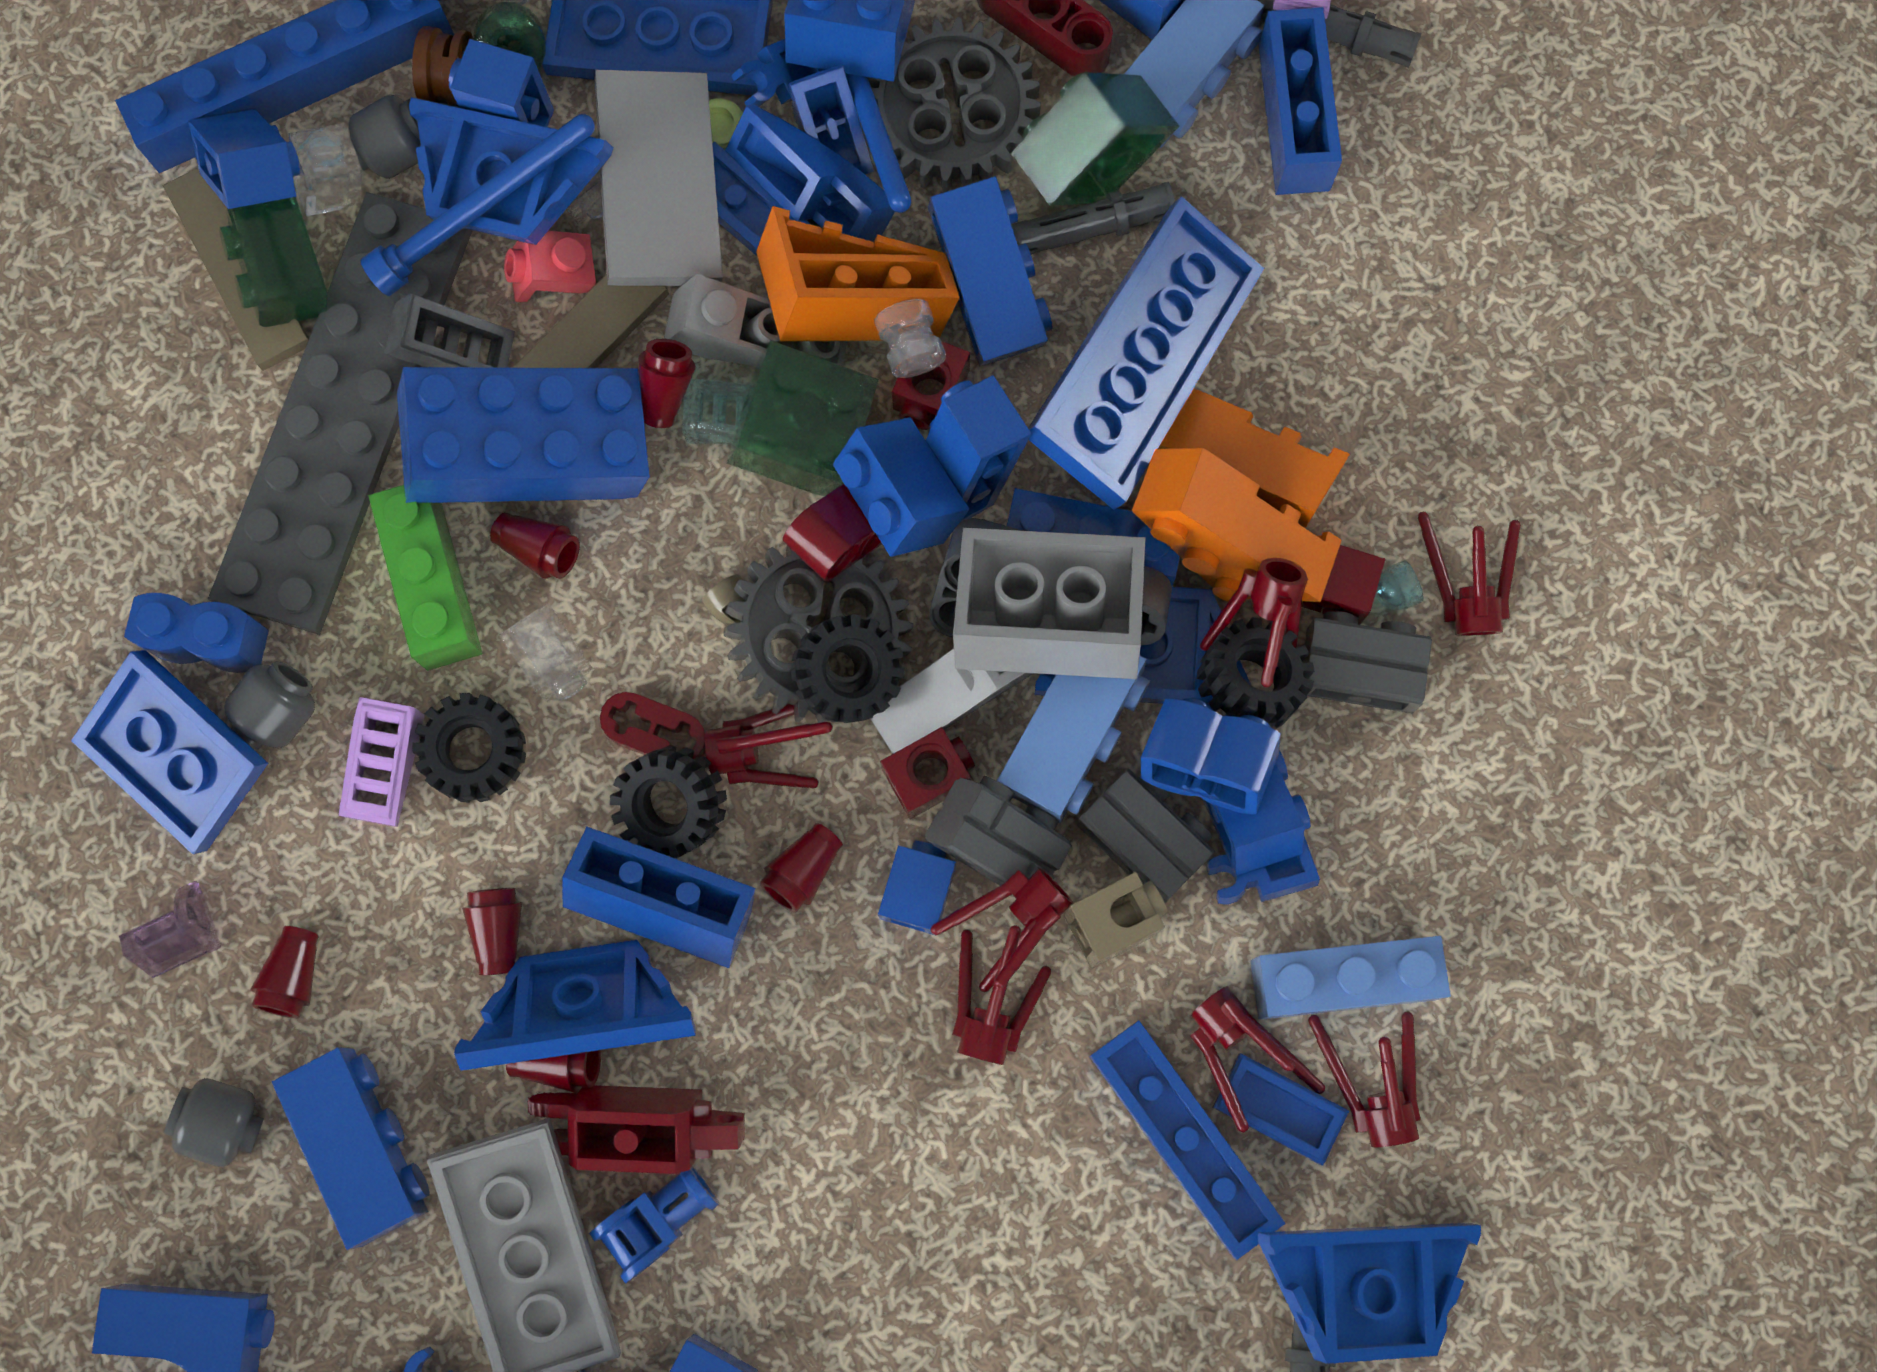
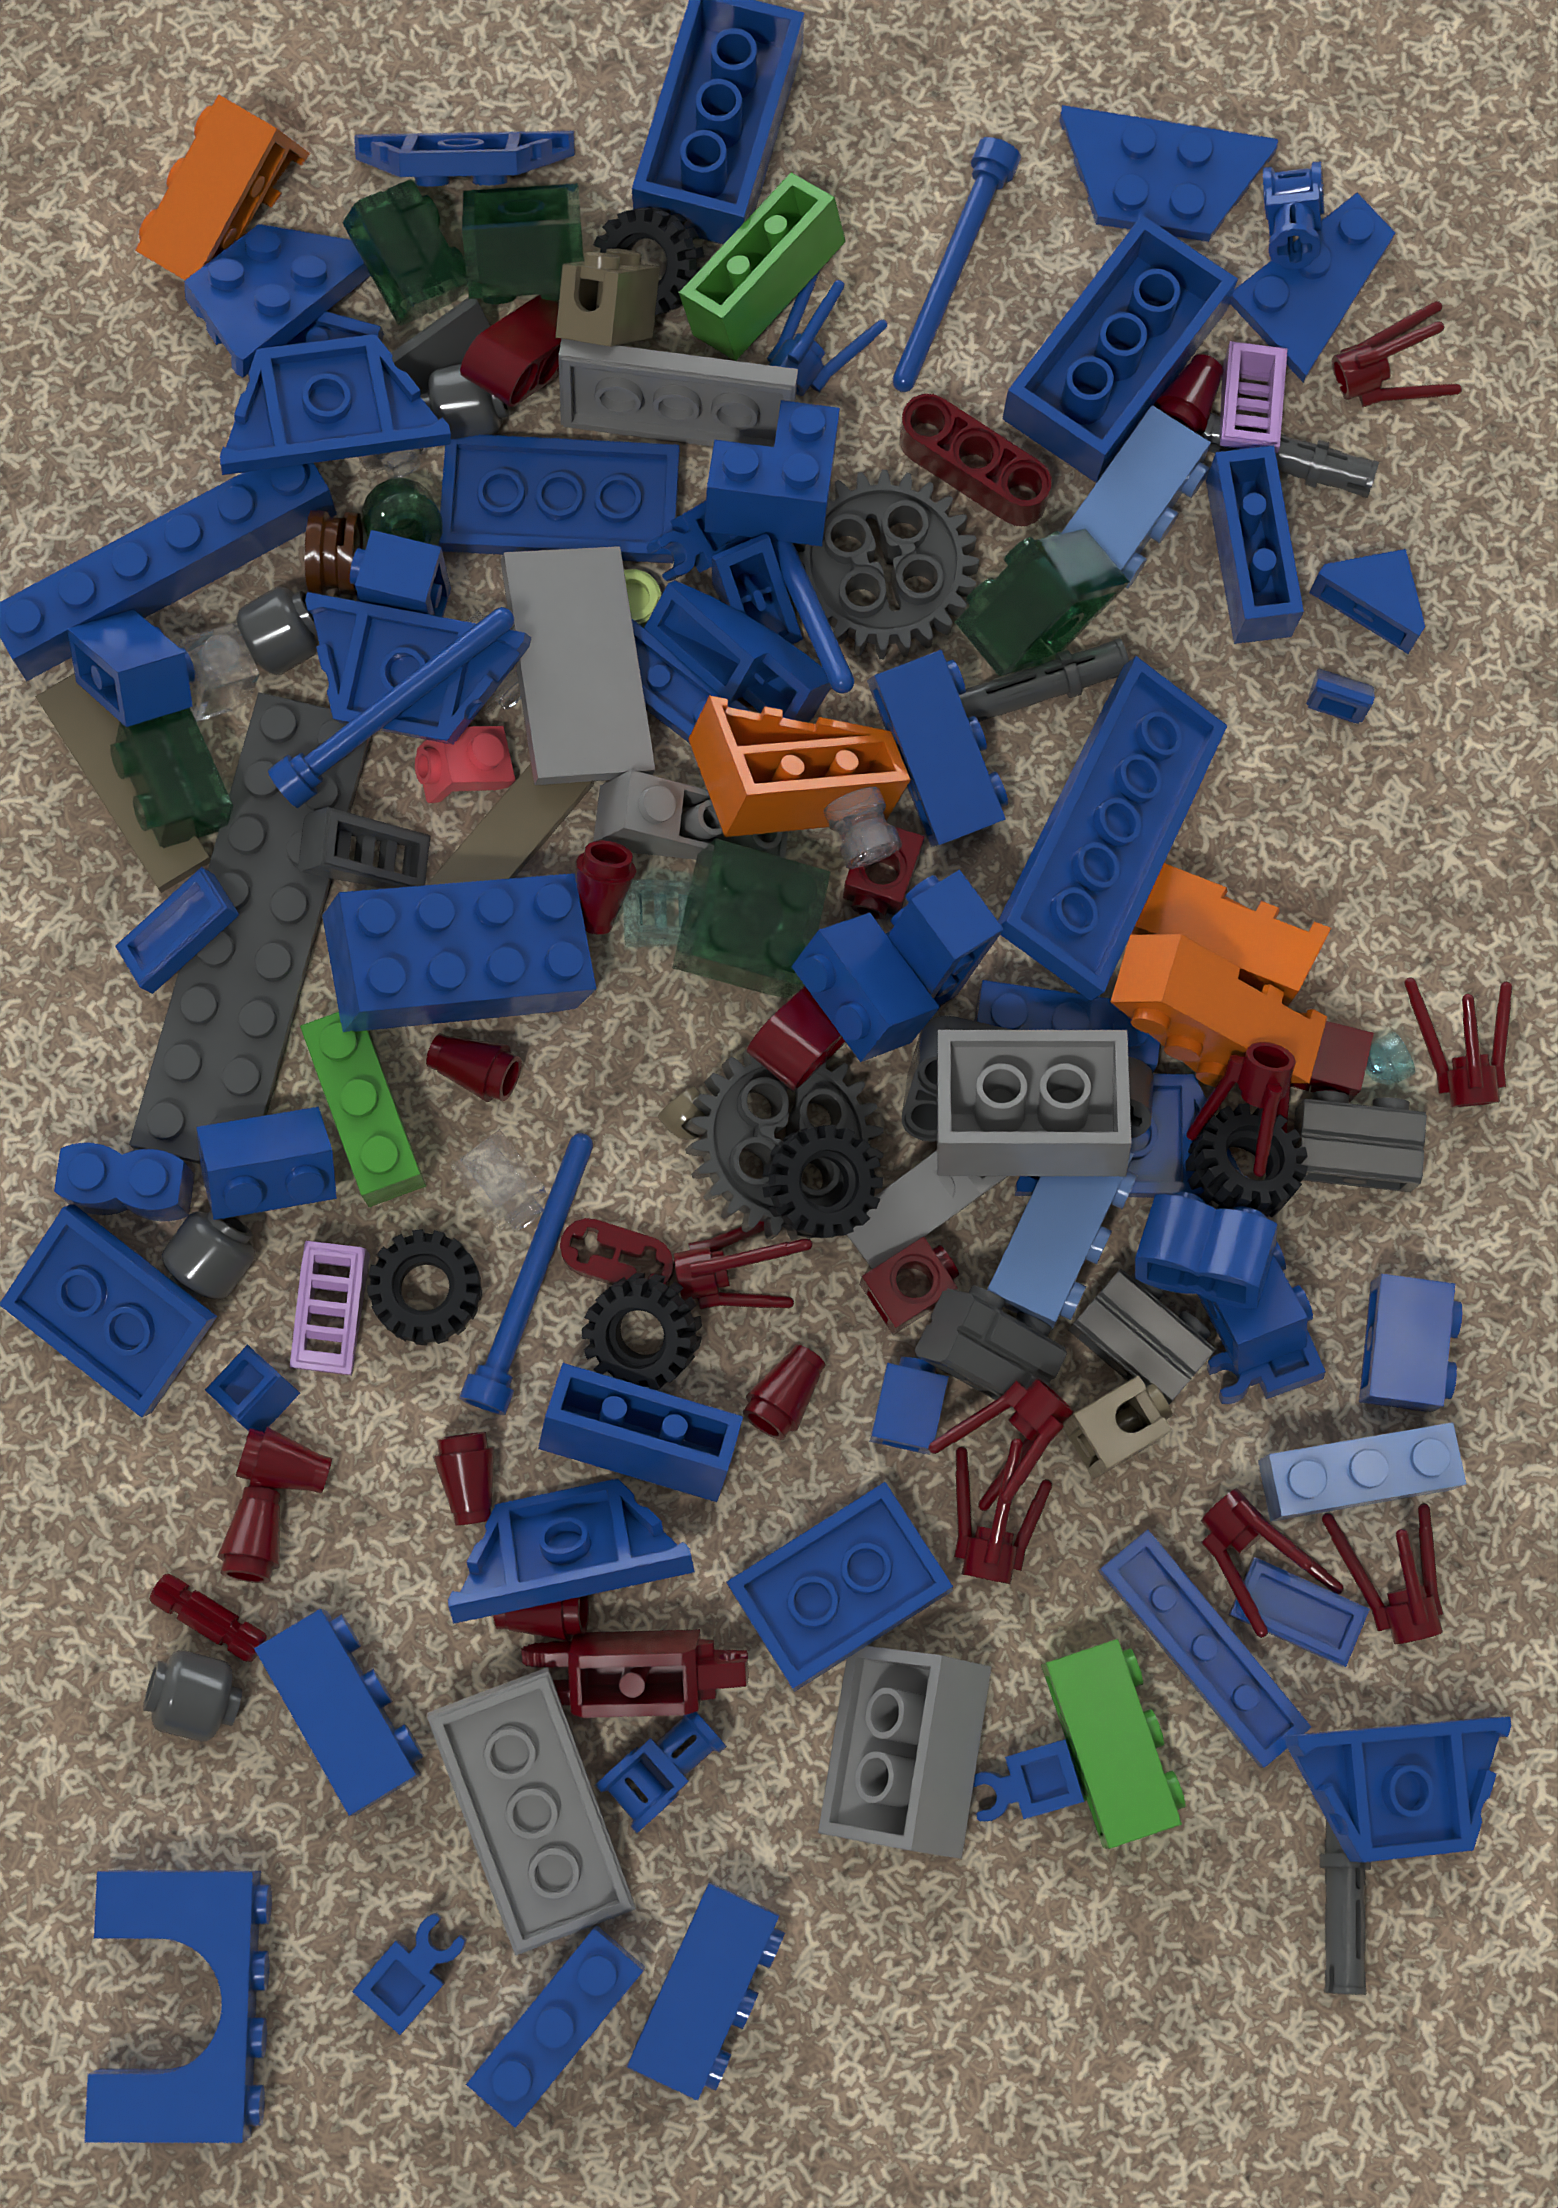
camera: 10 degrees left, 0 degrees up
(174, 936) = (130, 1505): tile -> none
(236, 1046) = (207, 1617): none -> dark red axle
(268, 403) = (177, 930): none -> blue tile
(302, 837) = (252, 1390): none -> blue slope
(319, 905) = (282, 1463): none -> dark red cone
(326, 622) = (266, 1163): none -> blue brick
(524, 841) = (491, 1382): none -> blue piece
(838, 1057) = (840, 1586): none -> blue plate
(890, 1222) = (905, 1750): none -> light grey slope
(1017, 1257) = (1038, 1780): none -> blue plate
(1093, 1227) = (1114, 1743): none -> bright green brick
(1372, 248) = (1340, 696): none -> blue slope
(1403, 857) = (1409, 1343): none -> blue brick
(1411, 154) = (1376, 594): none -> blue slope

